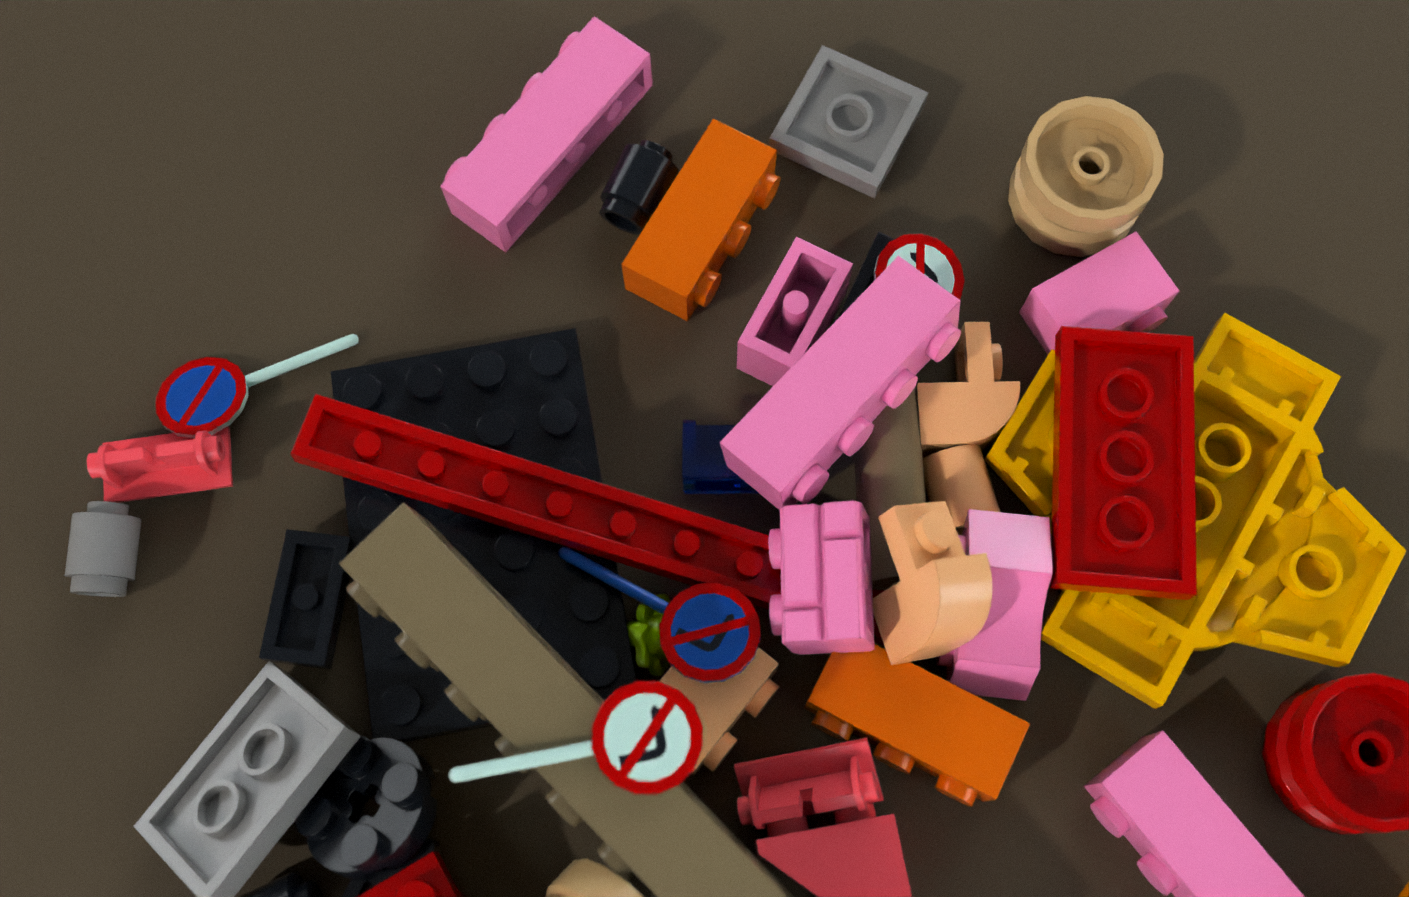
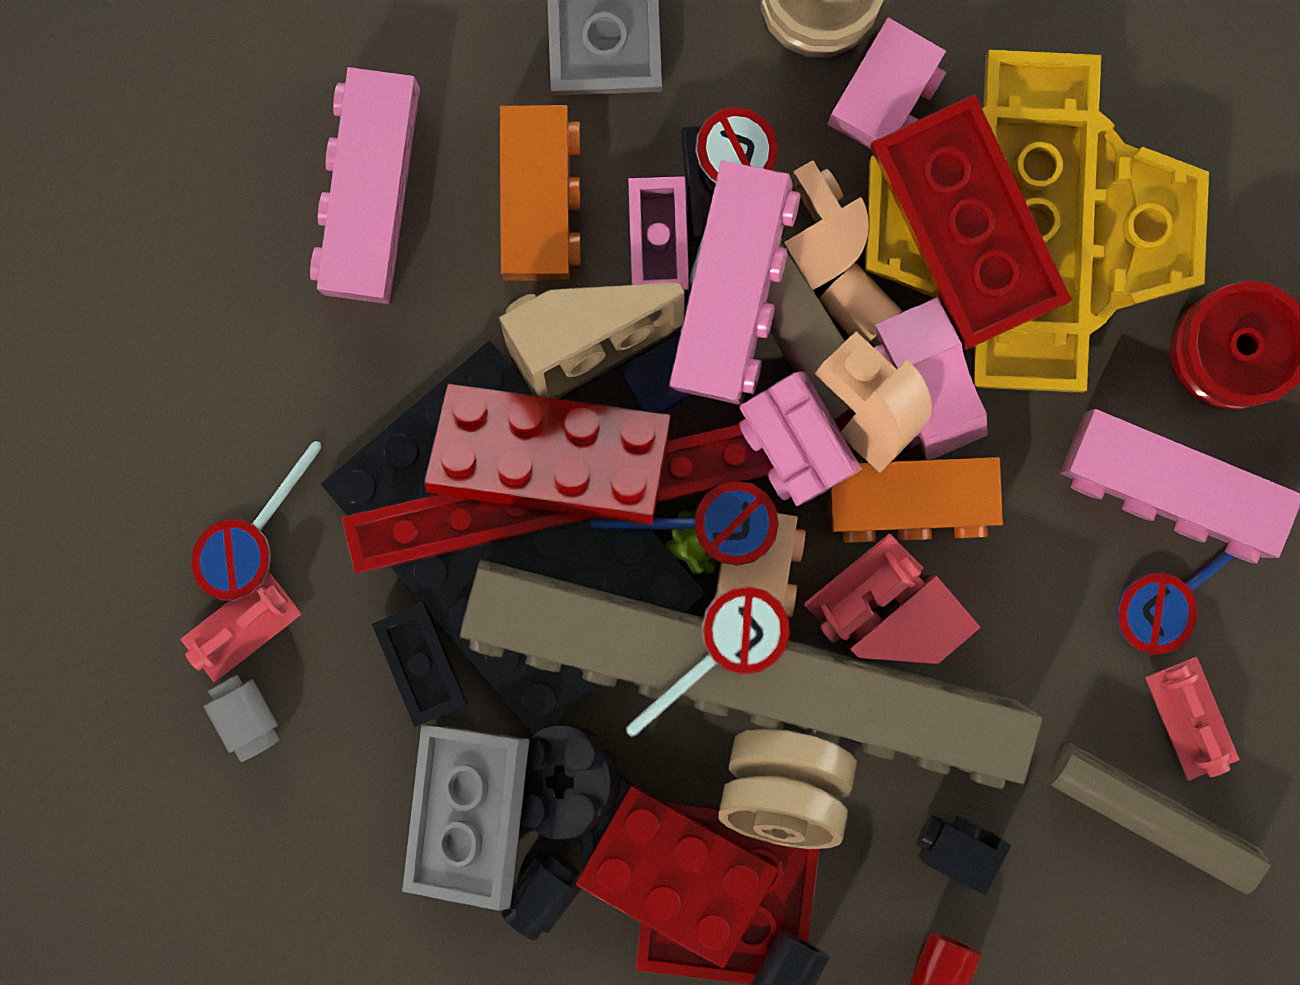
camera: 30 degrees left, 15 degrees up
(561, 454) = (548, 454): none -> plate
(637, 186) = (468, 192): black brick -> none
(672, 359) = (584, 332): none -> tan slope

